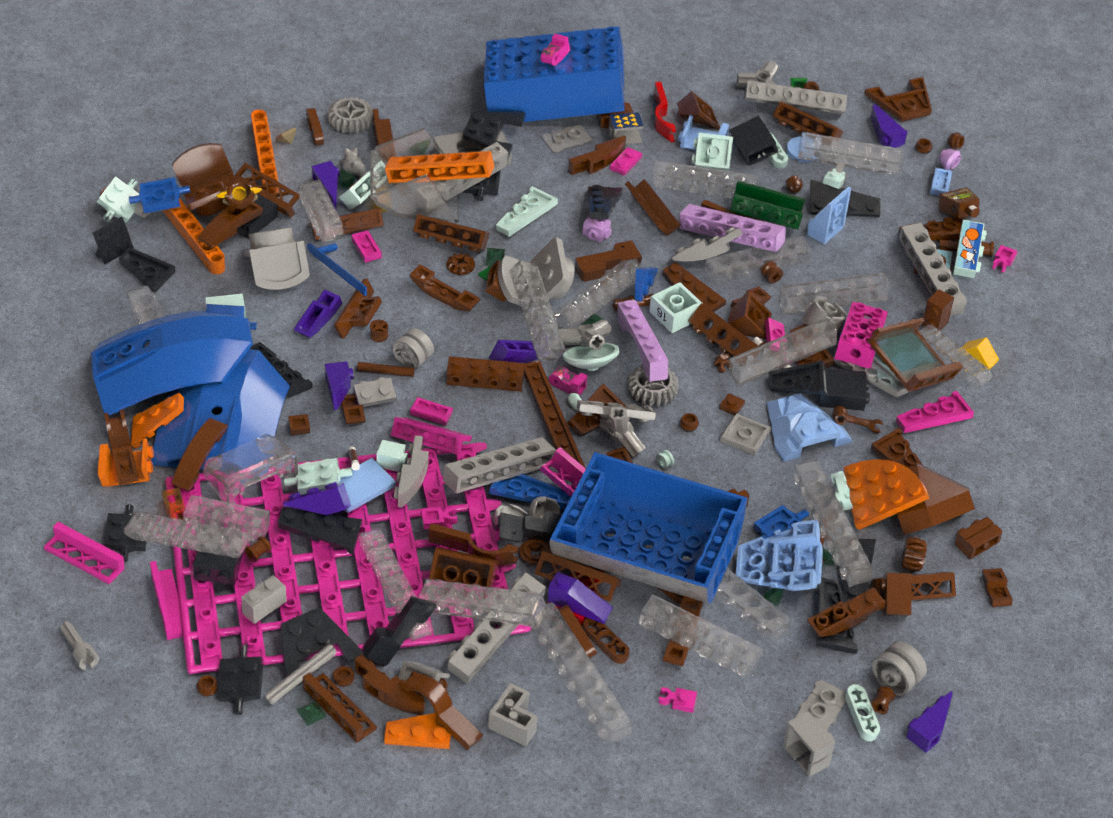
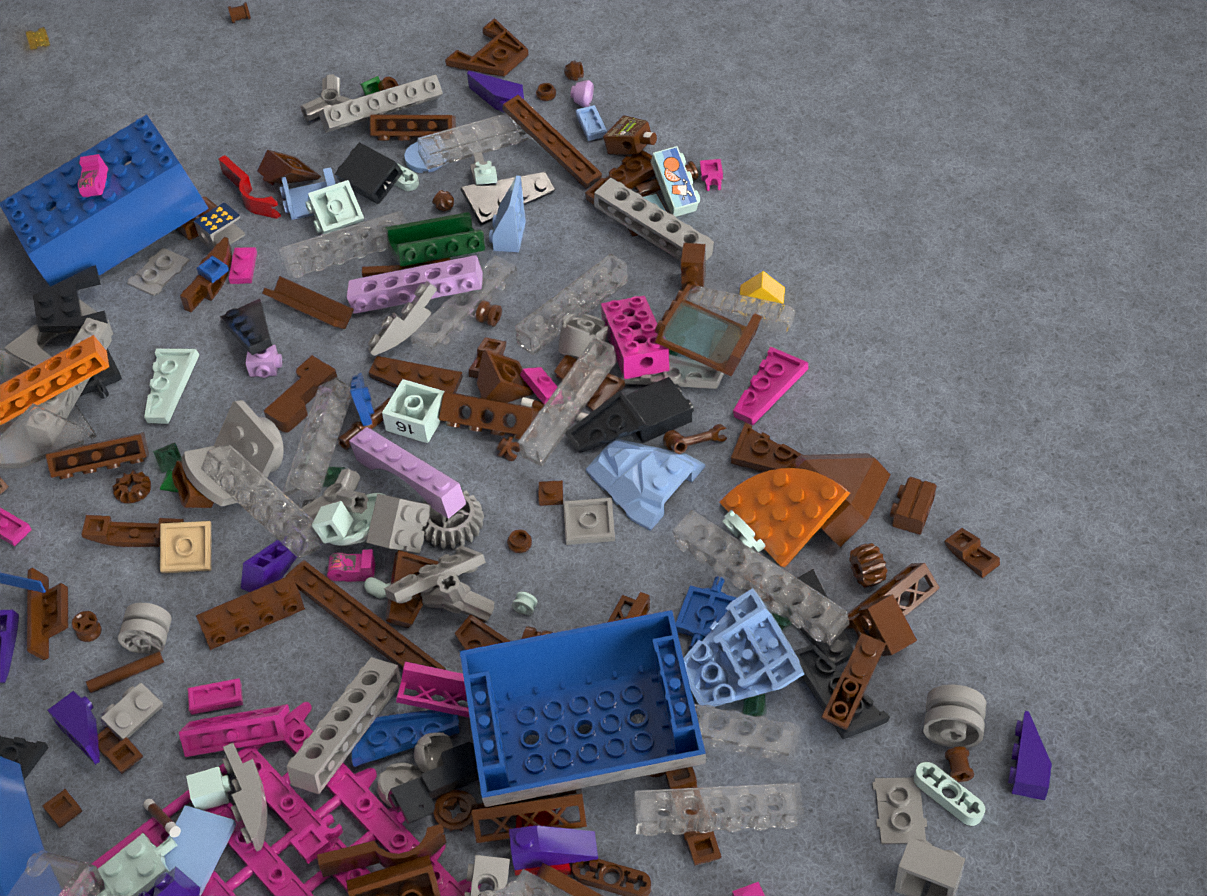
camera: 25 degrees left, 5 degrees up
(470, 315) = (185, 547): none -> tan tile
(572, 345) = (332, 522): none -> light aqua brick
(601, 152) = (212, 269): none -> blue tile
(613, 367) = (398, 523): none -> light grey piece
(899, 180) = (552, 141): none -> reddish brown plate

